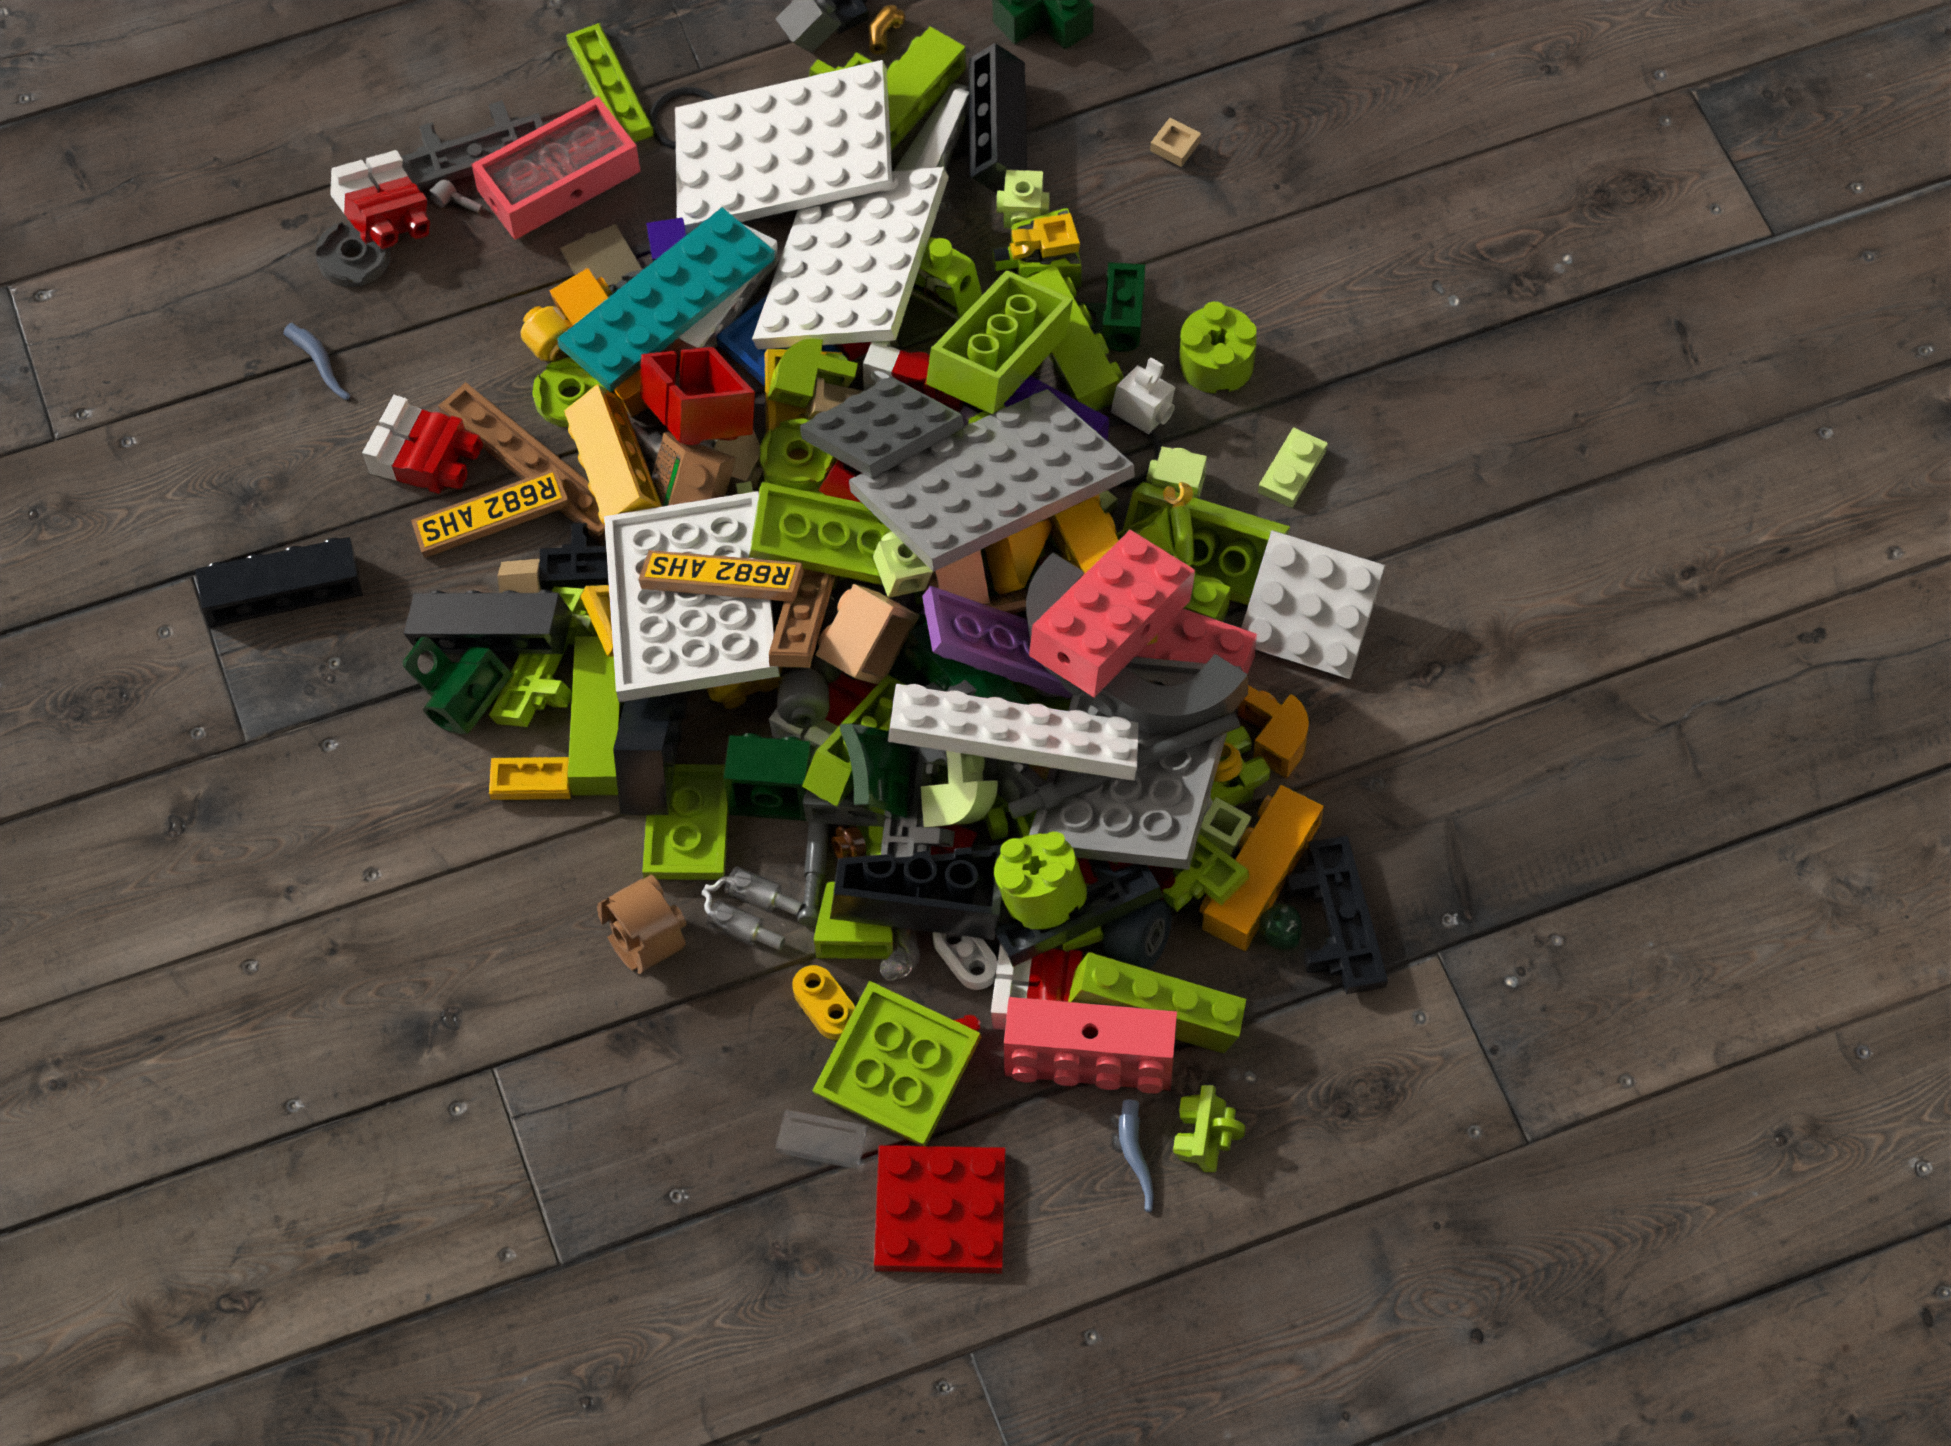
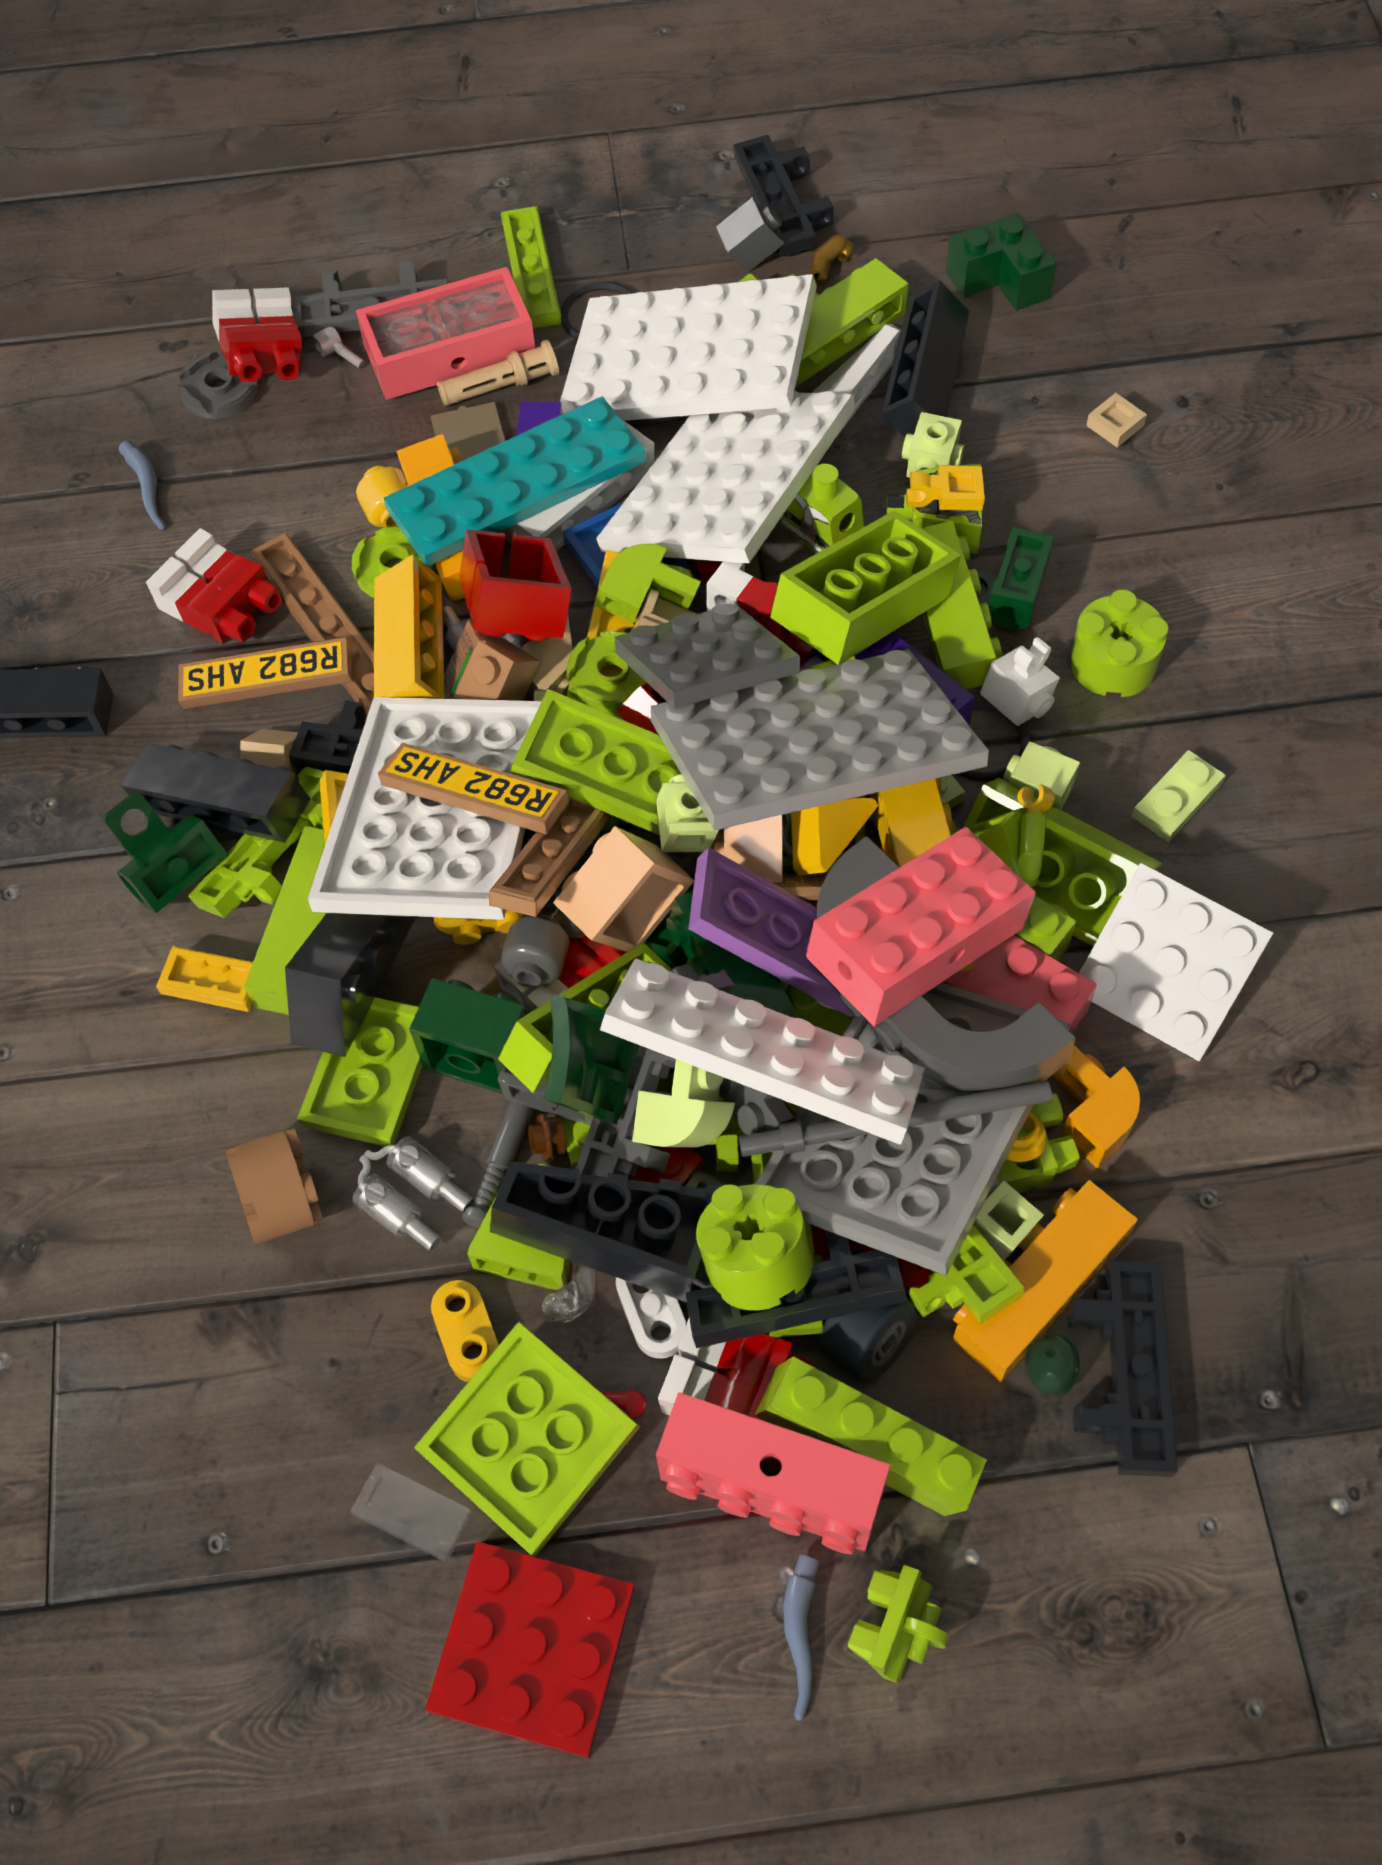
camera: 15 degrees right, 0 degrees up
(627, 190) = (517, 369): none -> tan pin

